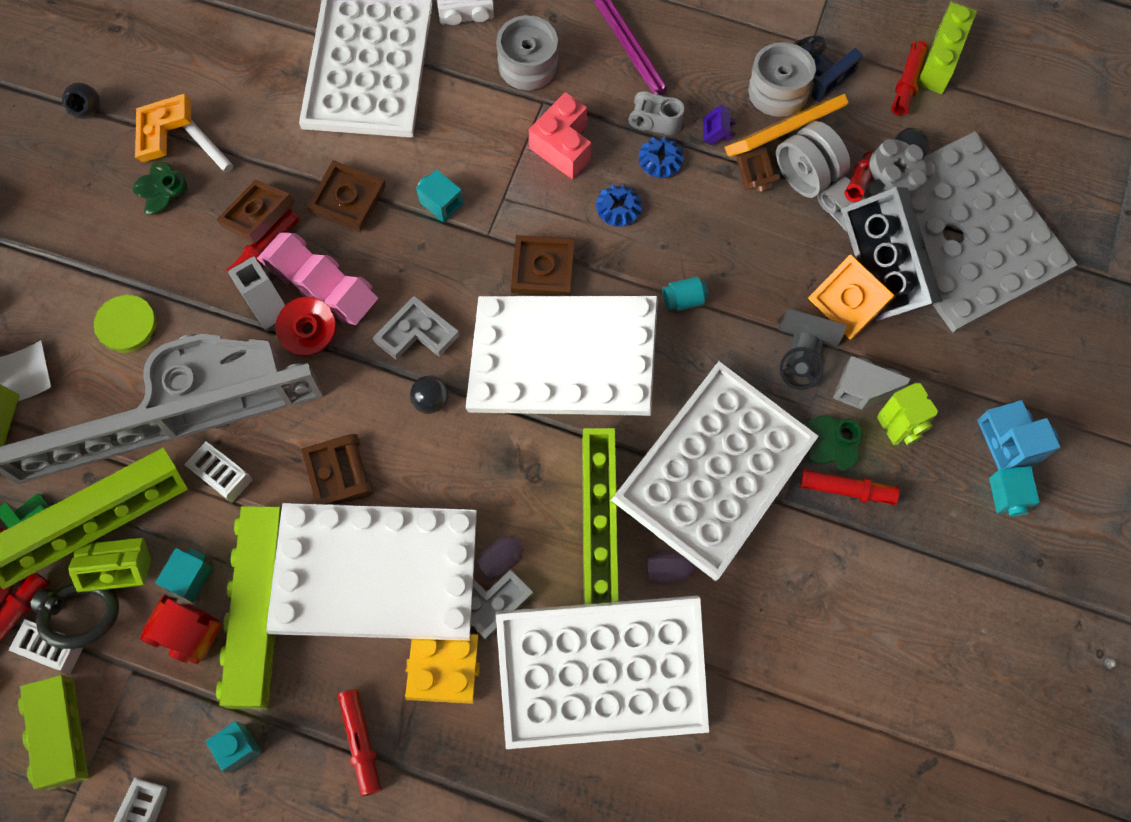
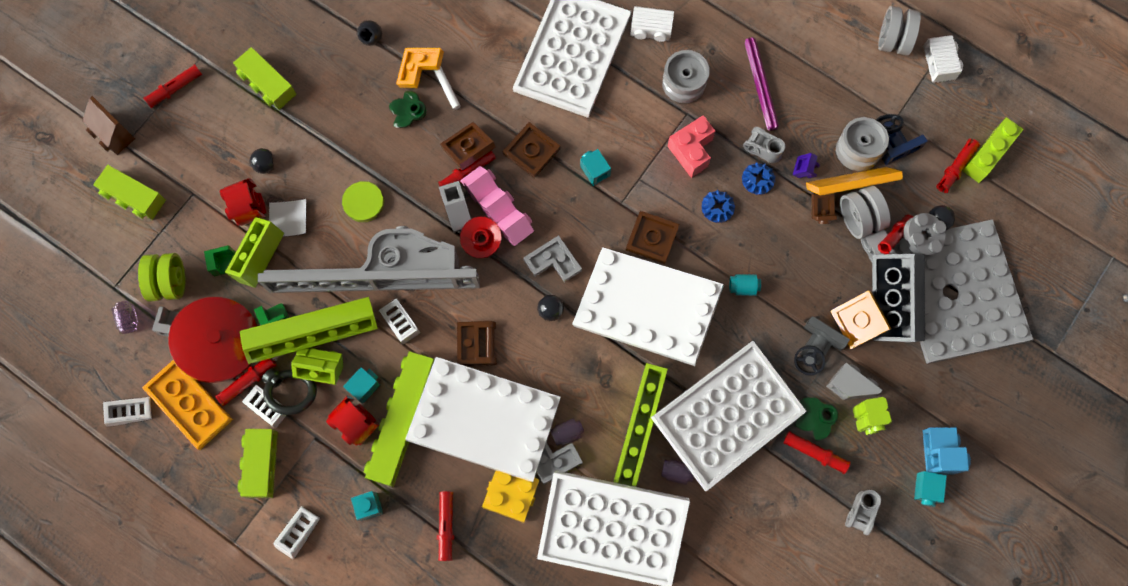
camera: 20 degrees right, 5 degrees up
(936, 553) = (863, 513): none -> light grey piece

